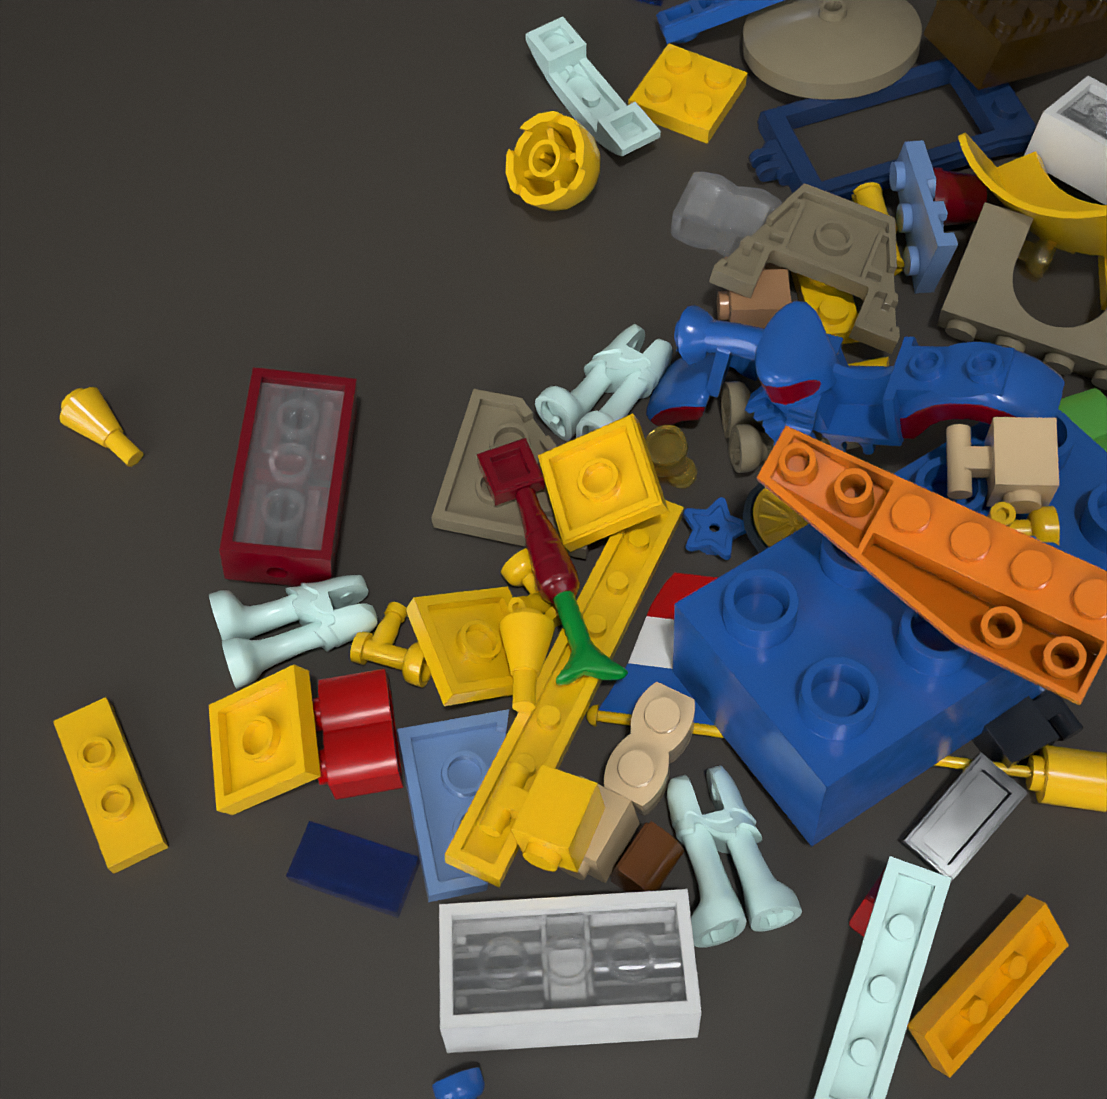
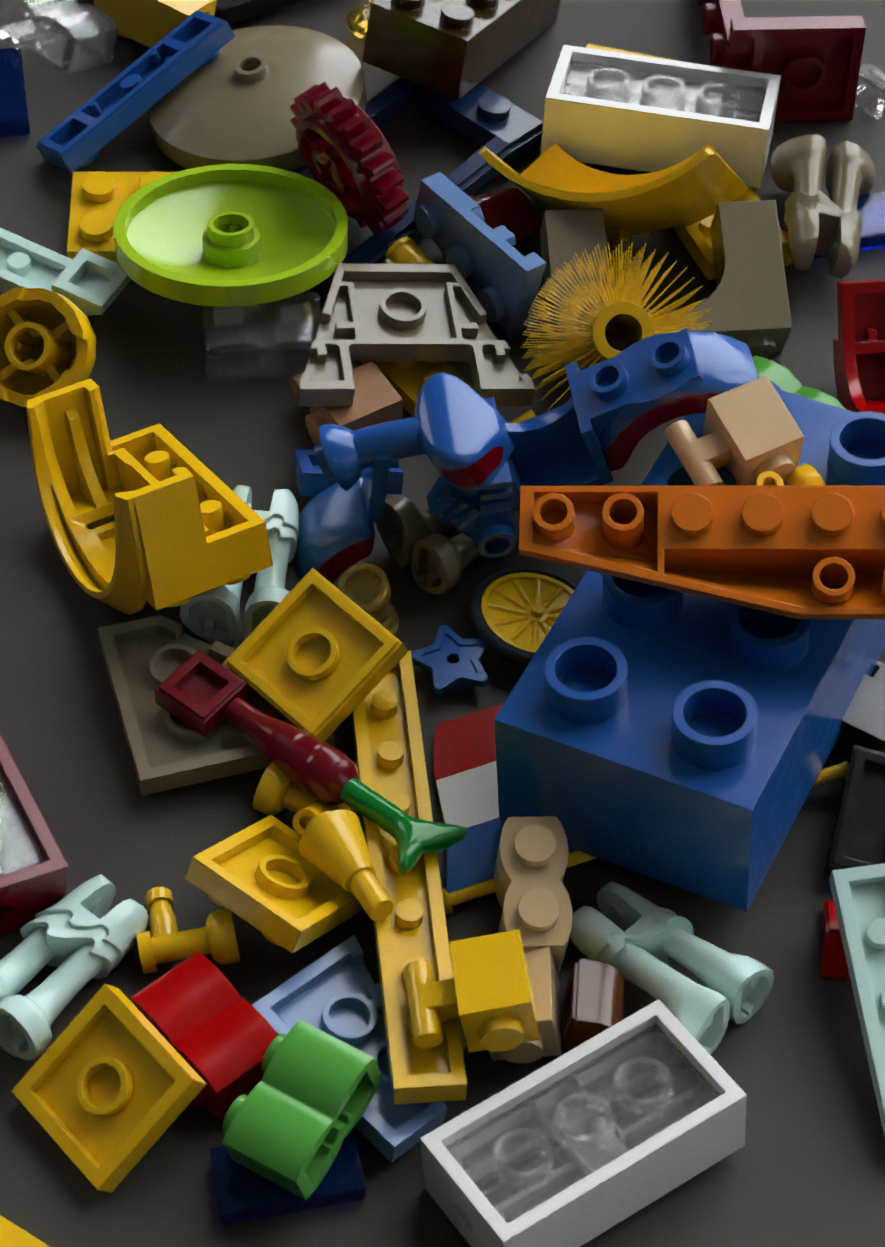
camera: 35 degrees left, 10 degrees down
(374, 832) = (300, 1108): none -> bright green brick
(527, 296) = (154, 507): none -> yellow piece
(741, 132) = (231, 235): none -> lime dish
(860, 103) = (349, 157): none -> dark red gear
(998, 304) = (619, 312): none -> yellow piece

